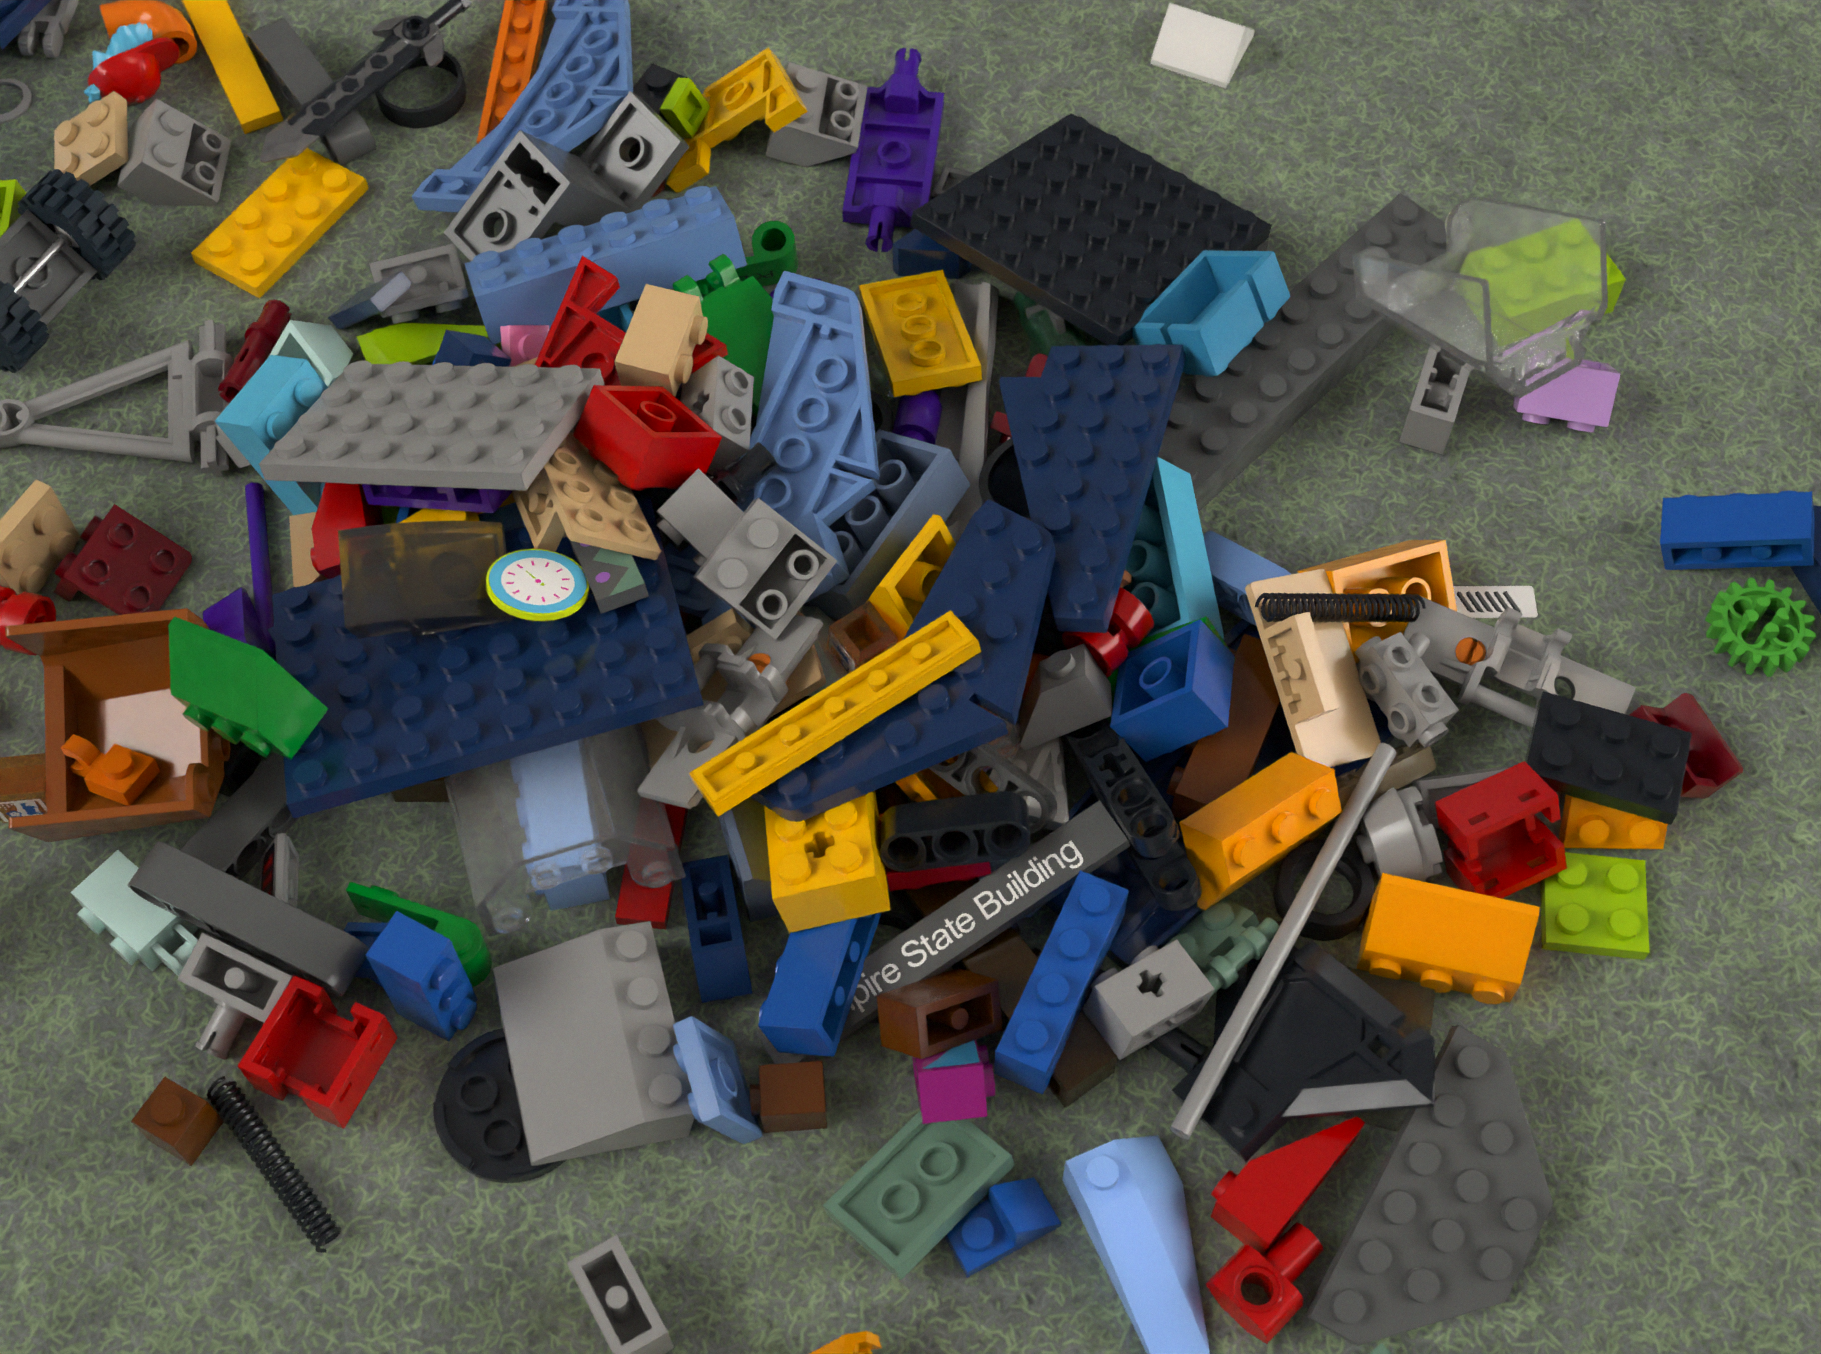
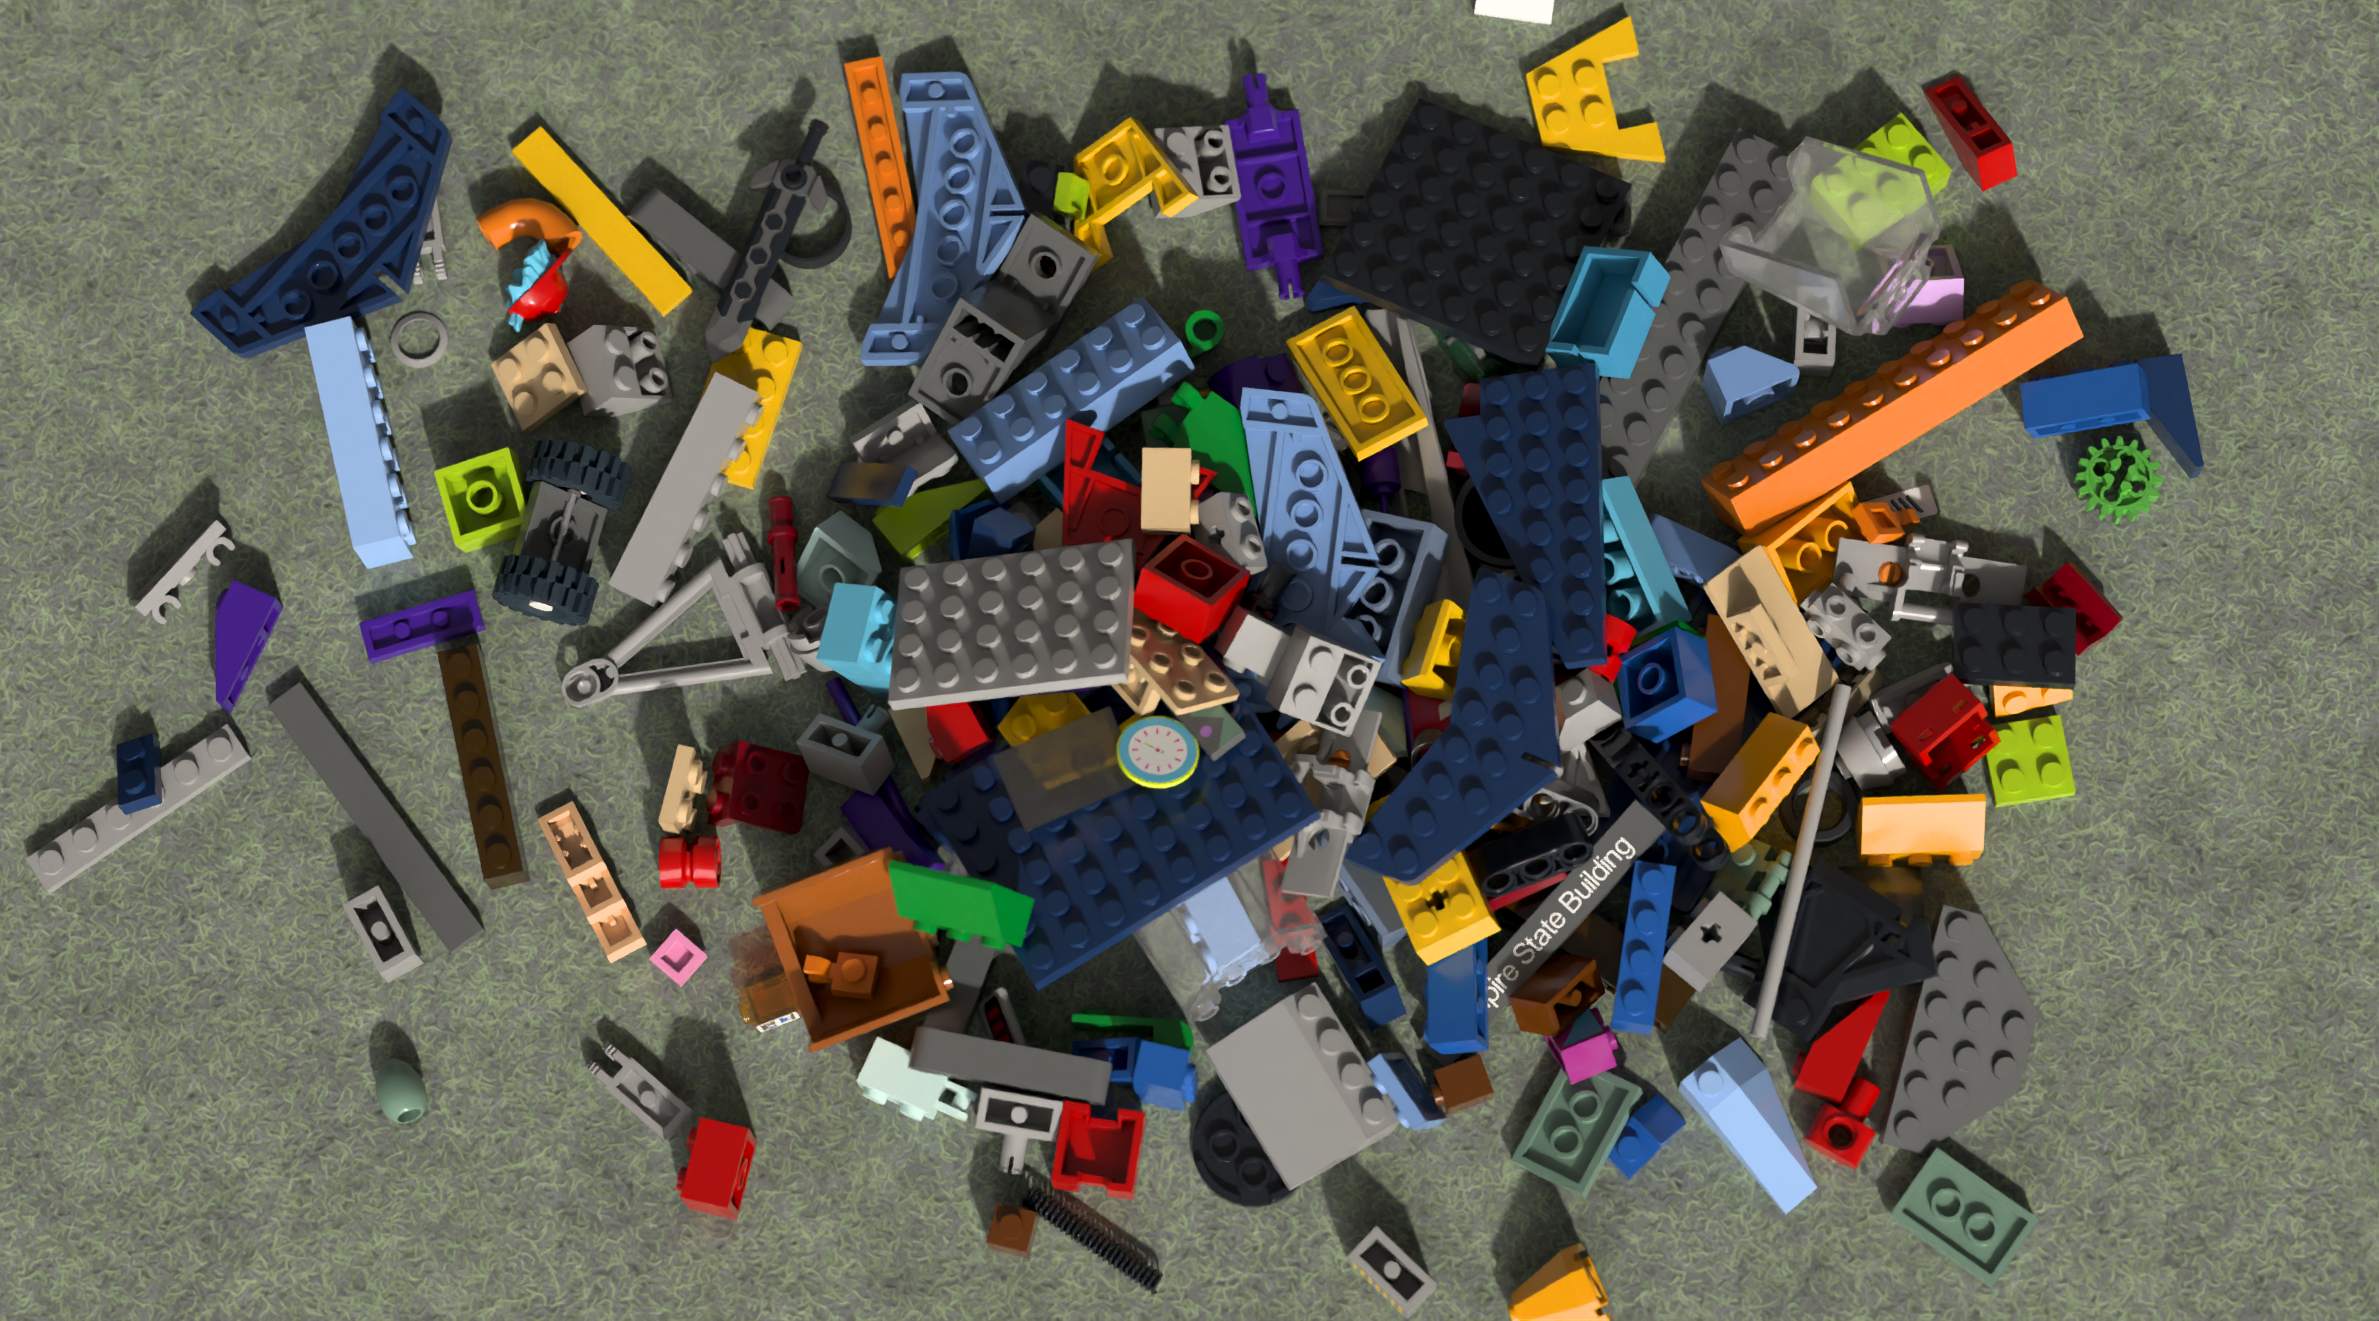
camera: 10 degrees left, 15 degrees up
(180, 267) = (687, 490): none -> light grey brick
(228, 547) = (849, 752): none -> light grey brick
(522, 341) = (1034, 501): bright pink plate -> none
(834, 712) = (1422, 794): yellow tile -> none
(859, 637) = (1410, 711): clear orange brick -> none
(1231, 155) = (1575, 103): none -> yellow wing
(1344, 599) = (1791, 580): black piece -> none
(1351, 425) = (1746, 382): none -> medium blue slope
(1470, 596) = (1882, 524): none -> orange plate
(1509, 482) = (1891, 407): none -> orange brick
(1655, 266) = (1973, 133): none -> red slope

